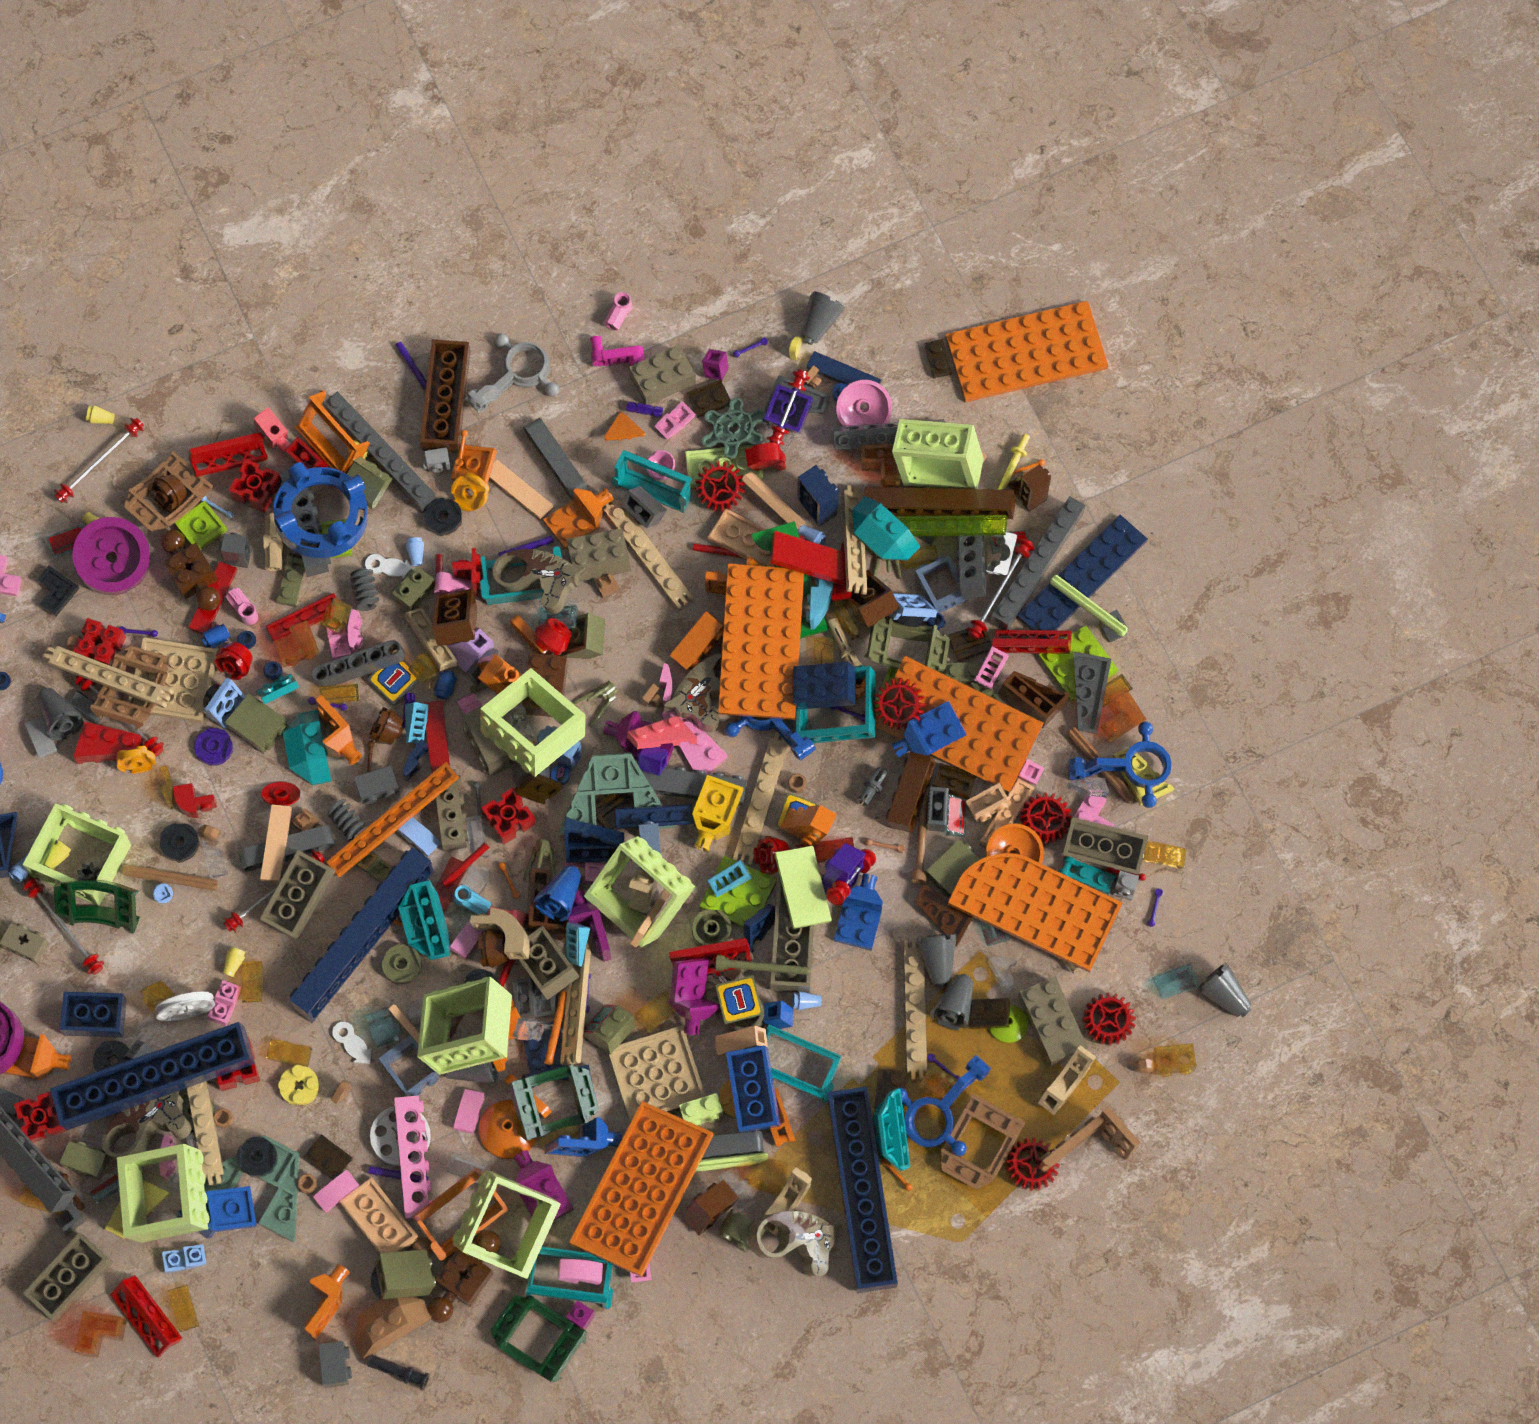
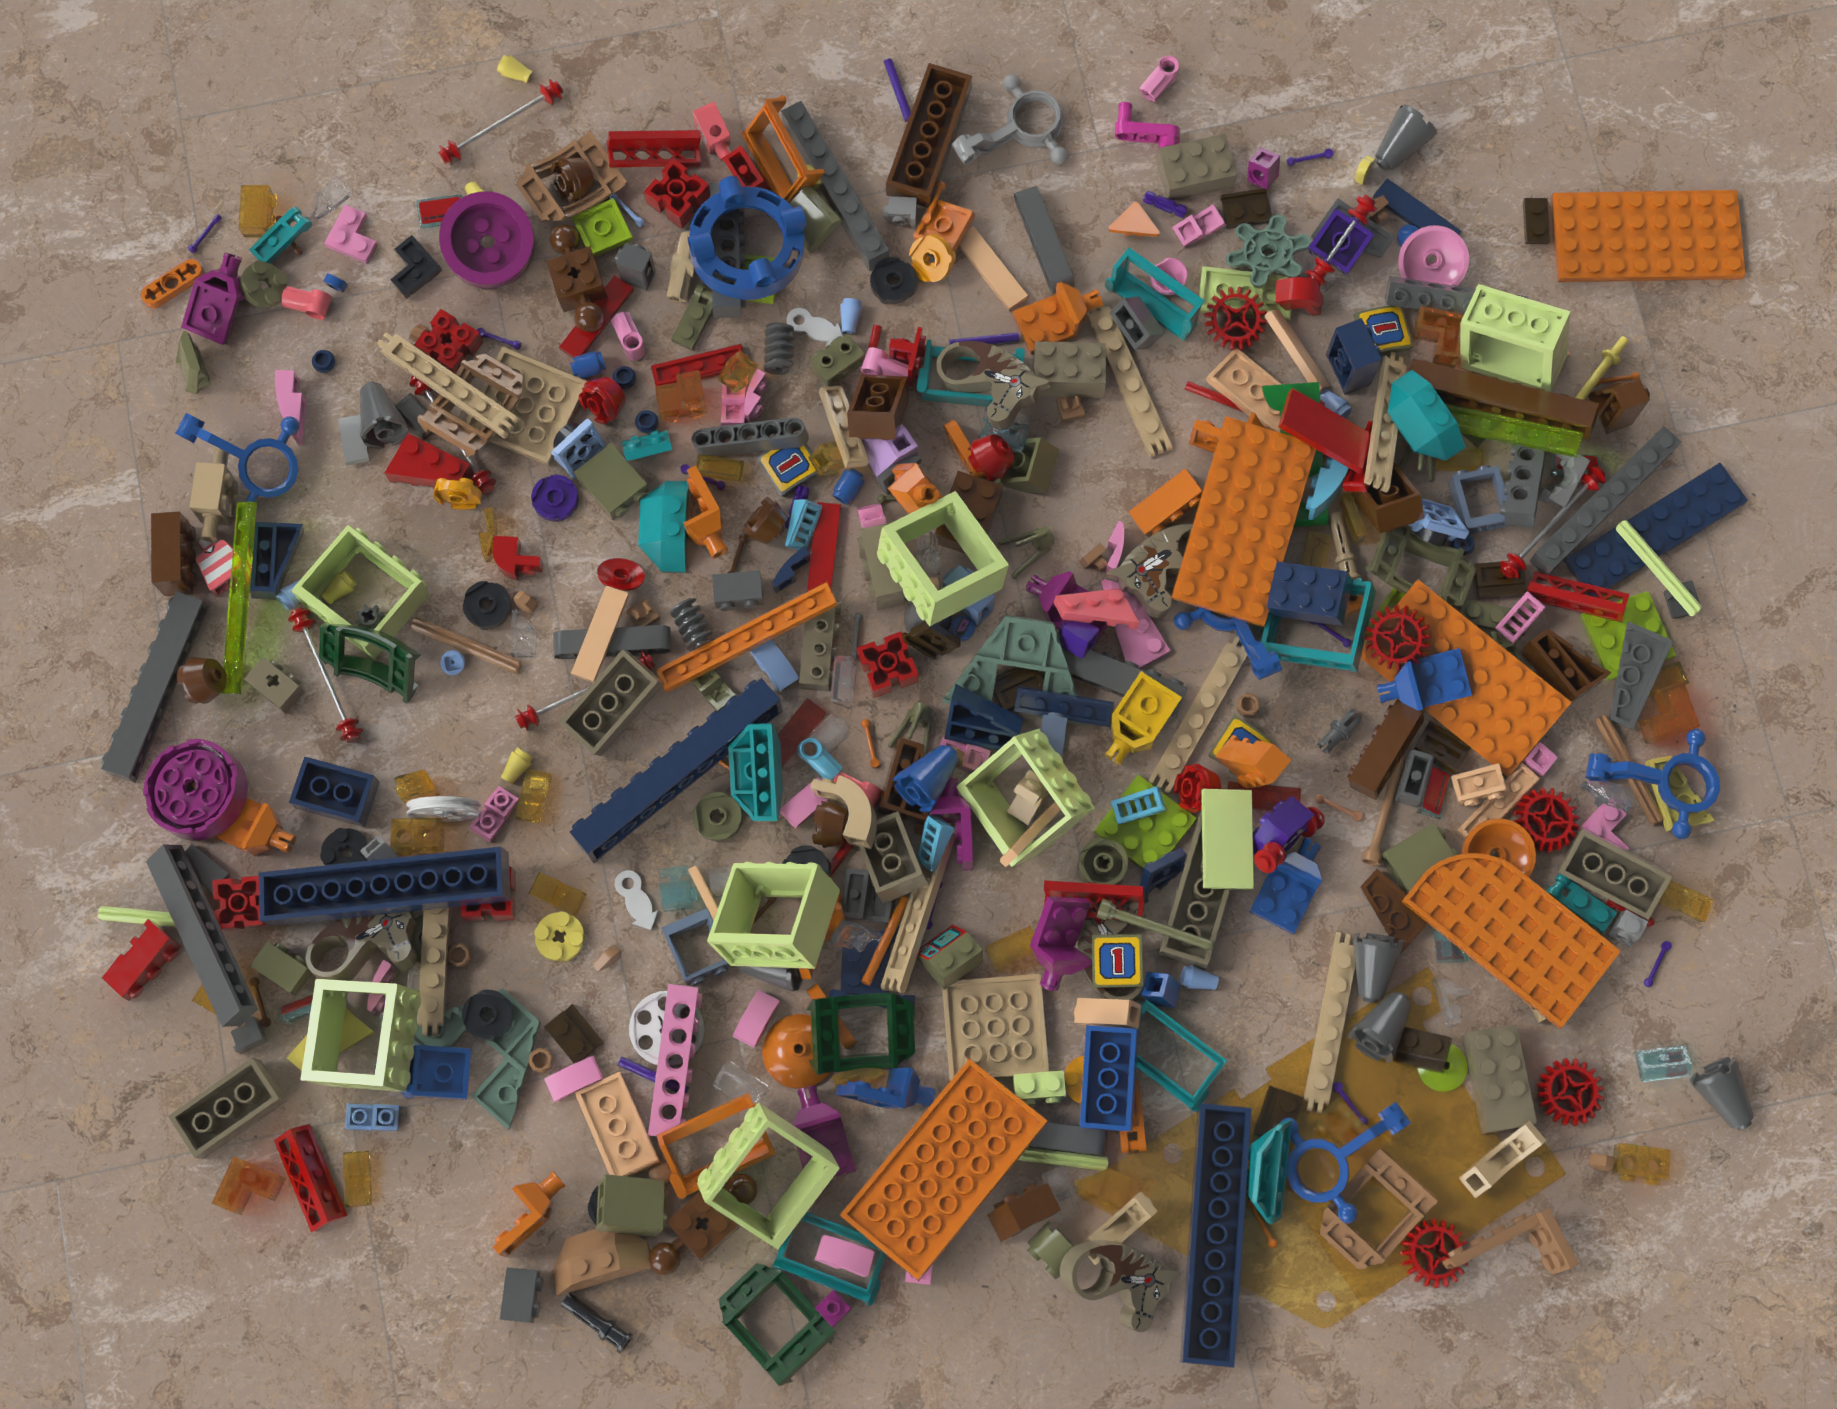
camera: 15 degrees right, 5 degrees up
(166, 1027) = (418, 828): none -> clear yellow brick
(465, 864) = (822, 712): red bar -> none
(840, 468) = (1387, 328): none -> slope

